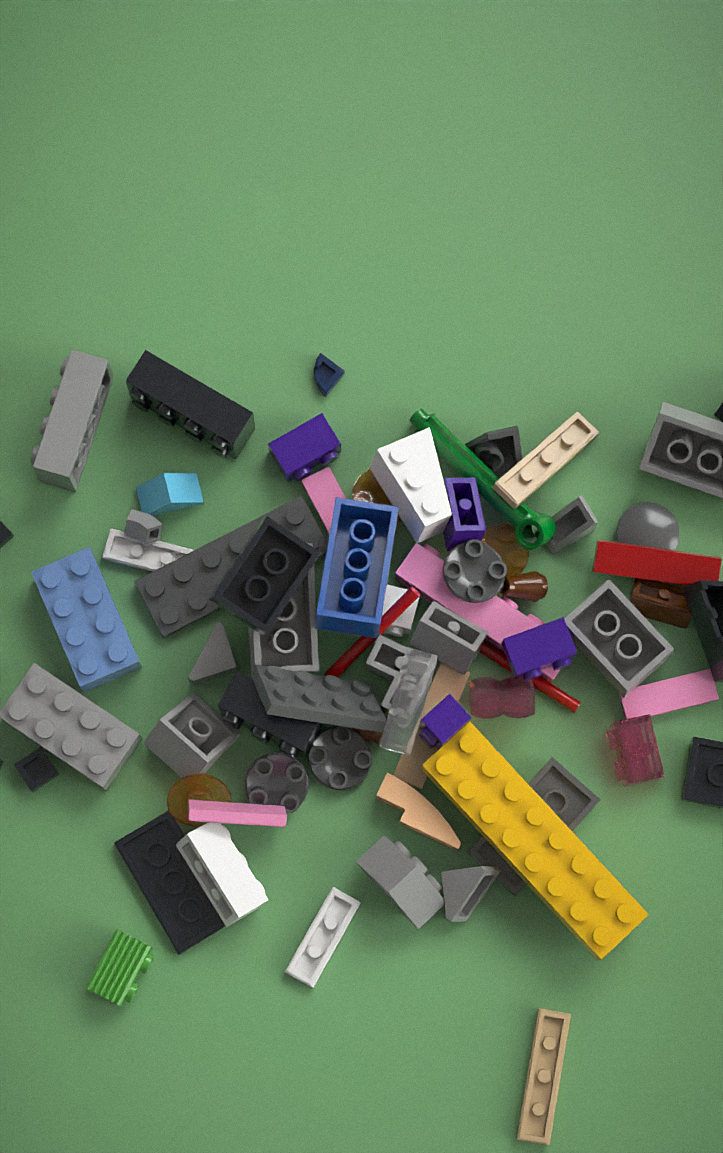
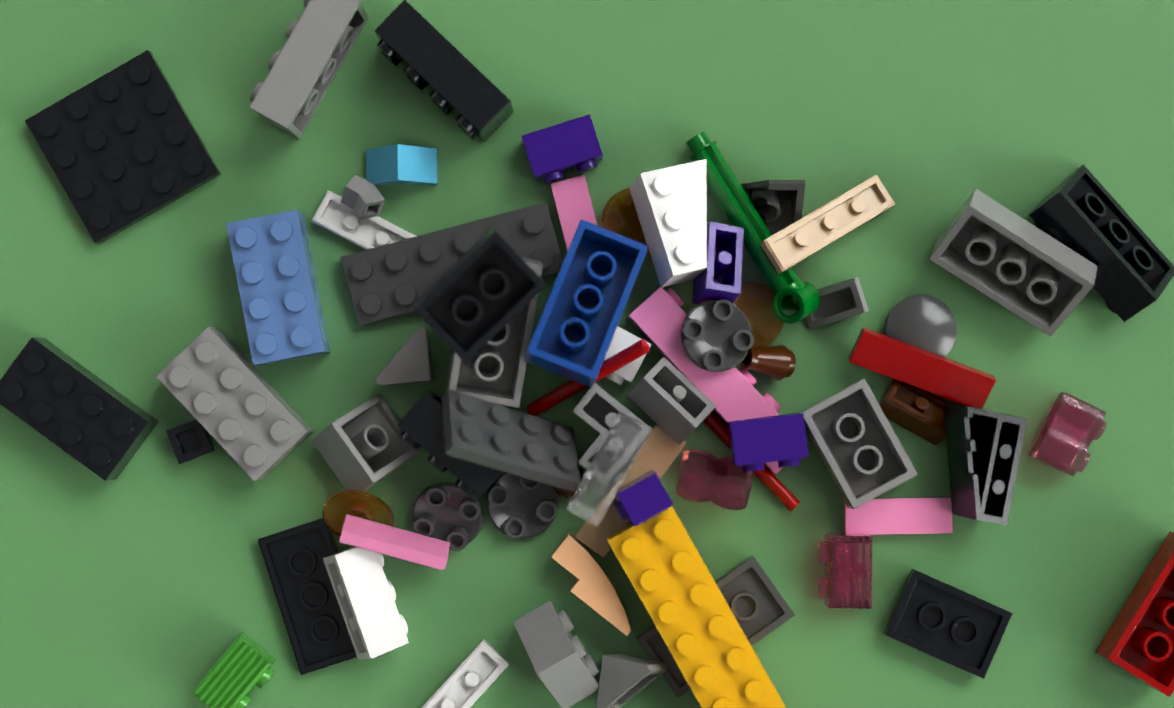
camera: 15 degrees right, 10 degrees up
(326, 374) = (606, 68): dark blue tile -> none

